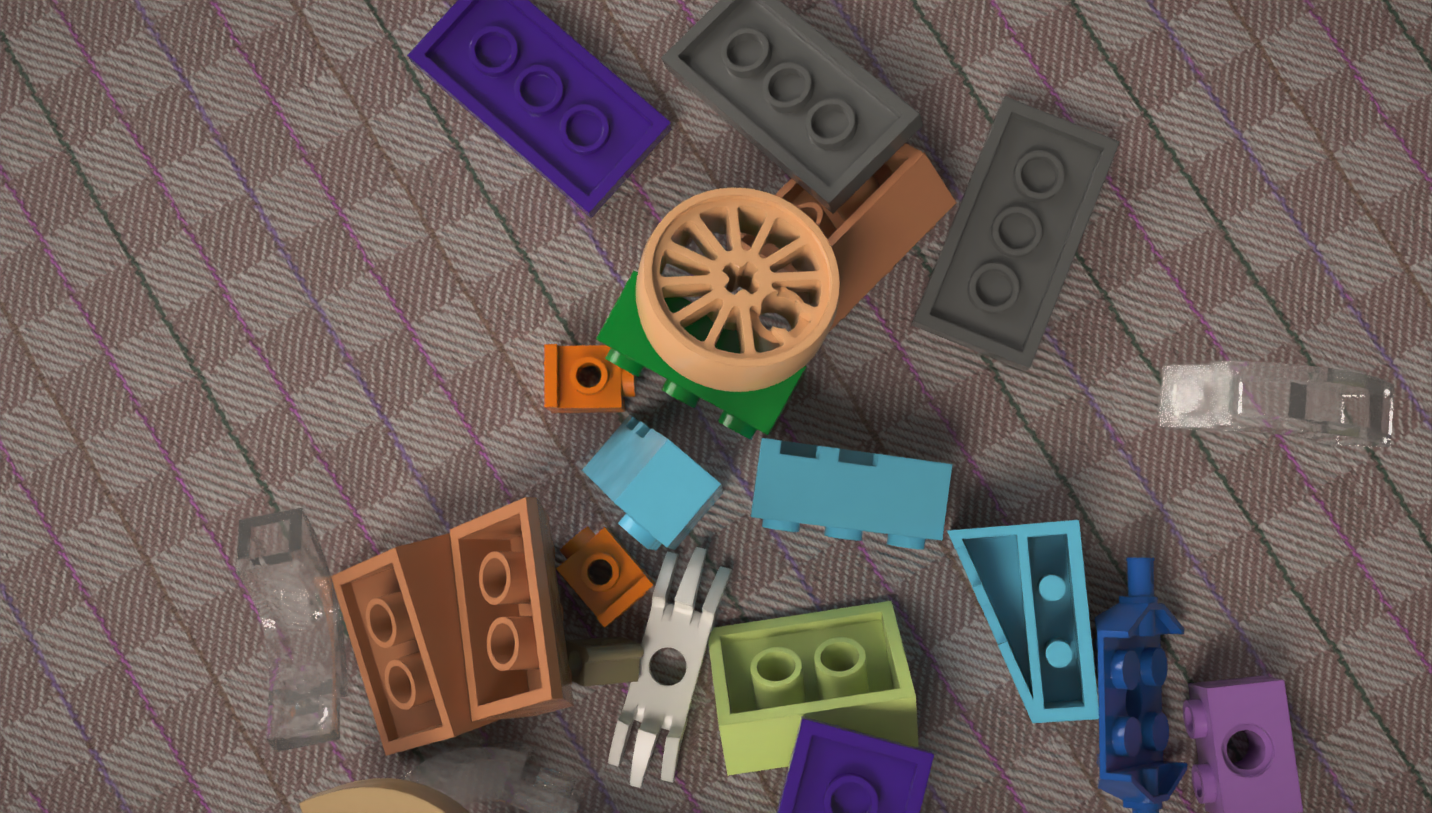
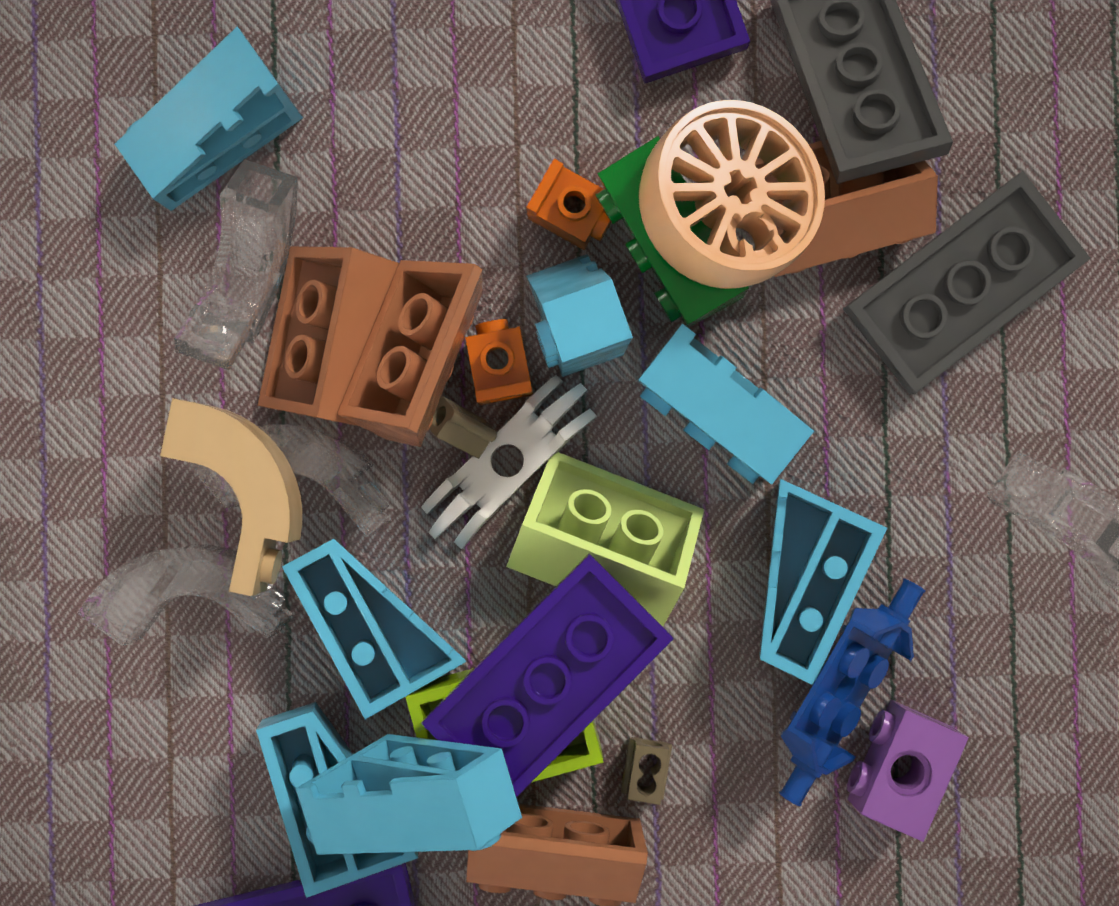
camera: 30 degrees right, 5 degrees up
(182, 504) = (207, 123): none -> medium azure wedge

